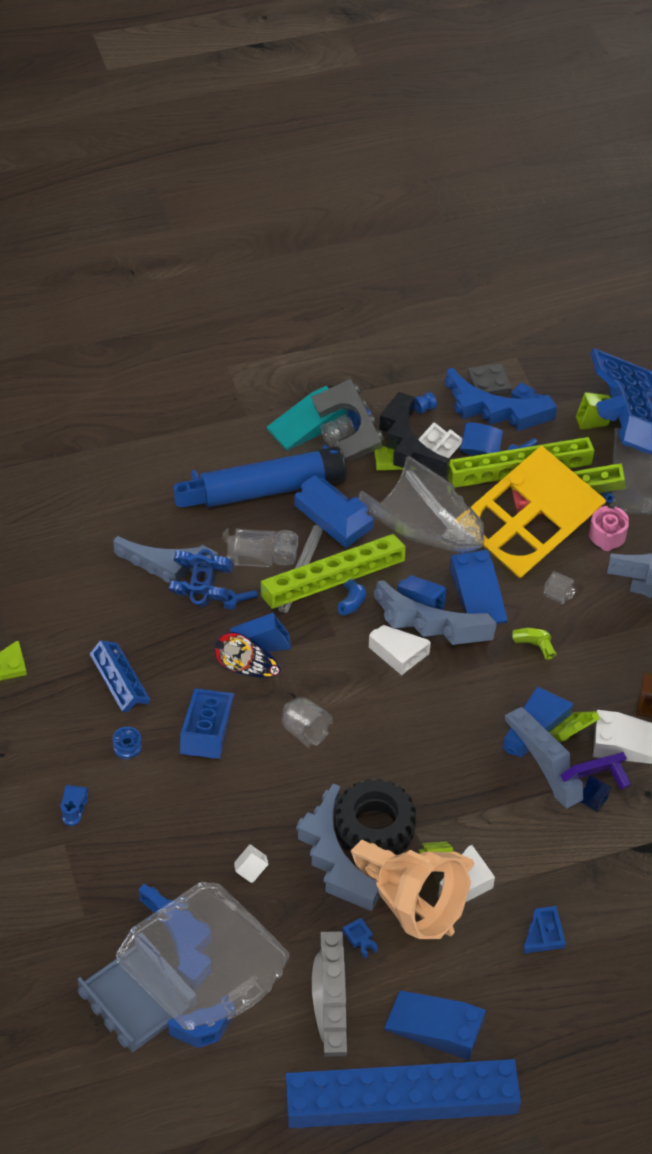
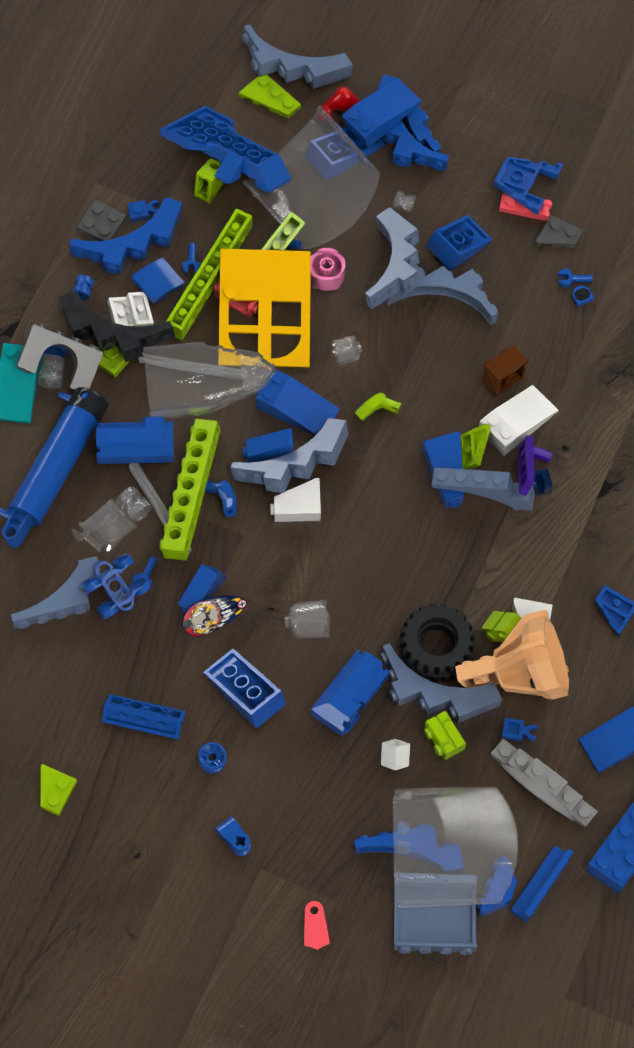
camera: 50 degrees left, 15 degrees up
(47, 916) = (315, 927): none -> coral piece
(239, 1057) = (541, 883): none -> blue fence
(268, 790) = (350, 692): none -> blue brick
(302, 886) = (444, 735): none -> lime brick

